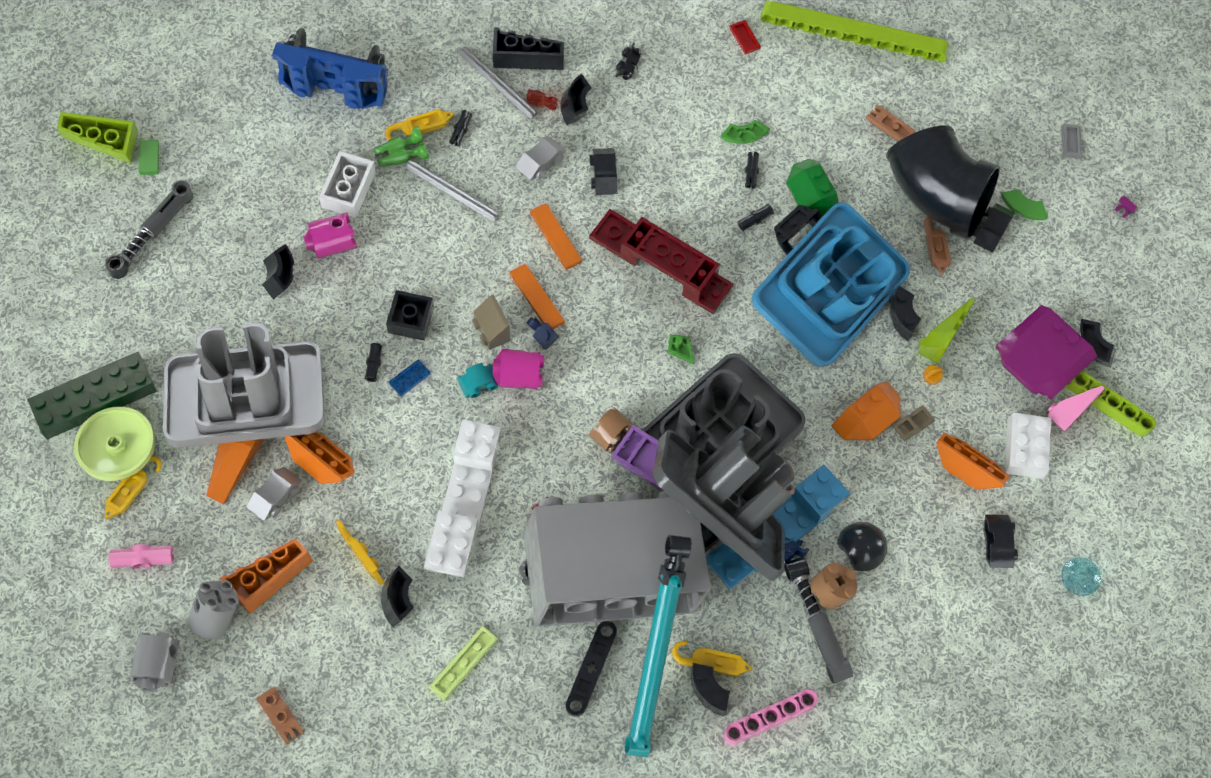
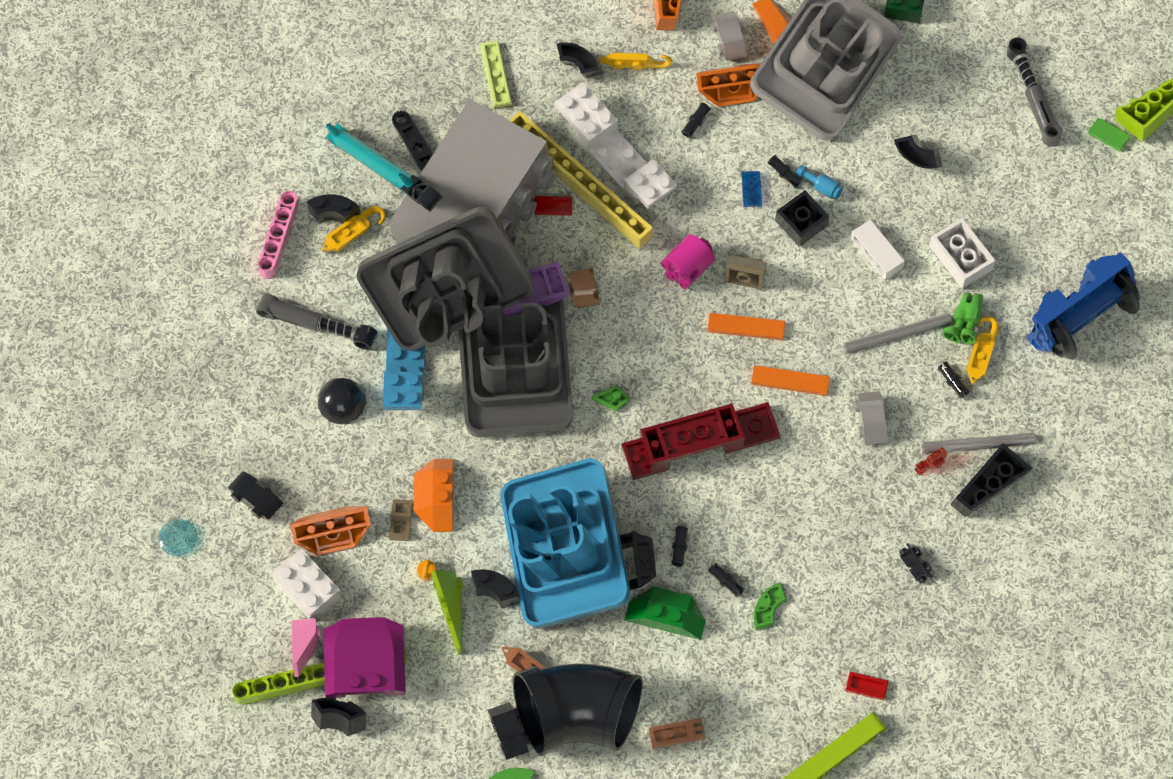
camera: 135 degrees right, 0 degrees up
(330, 236) = (920, 207): dark pink cylinder -> none
(362, 325) = (823, 183): none -> dark azure piece
(379, 463) = (695, 120): none -> black pin
(391, 246) = (878, 249): none -> white brick
(477, 379) = (708, 229): teal cylinder -> none
(514, 510) = (591, 189): none -> light yellow brick
(544, 333) = (708, 305): dark blue plate -> none
(574, 100) = (909, 483): black brick -> none
(604, 171) = (812, 453): black brick -> none
(793, 548) = (382, 339): dark blue plate -> none
(834, 585) = (338, 346): medium nougat brick -> none

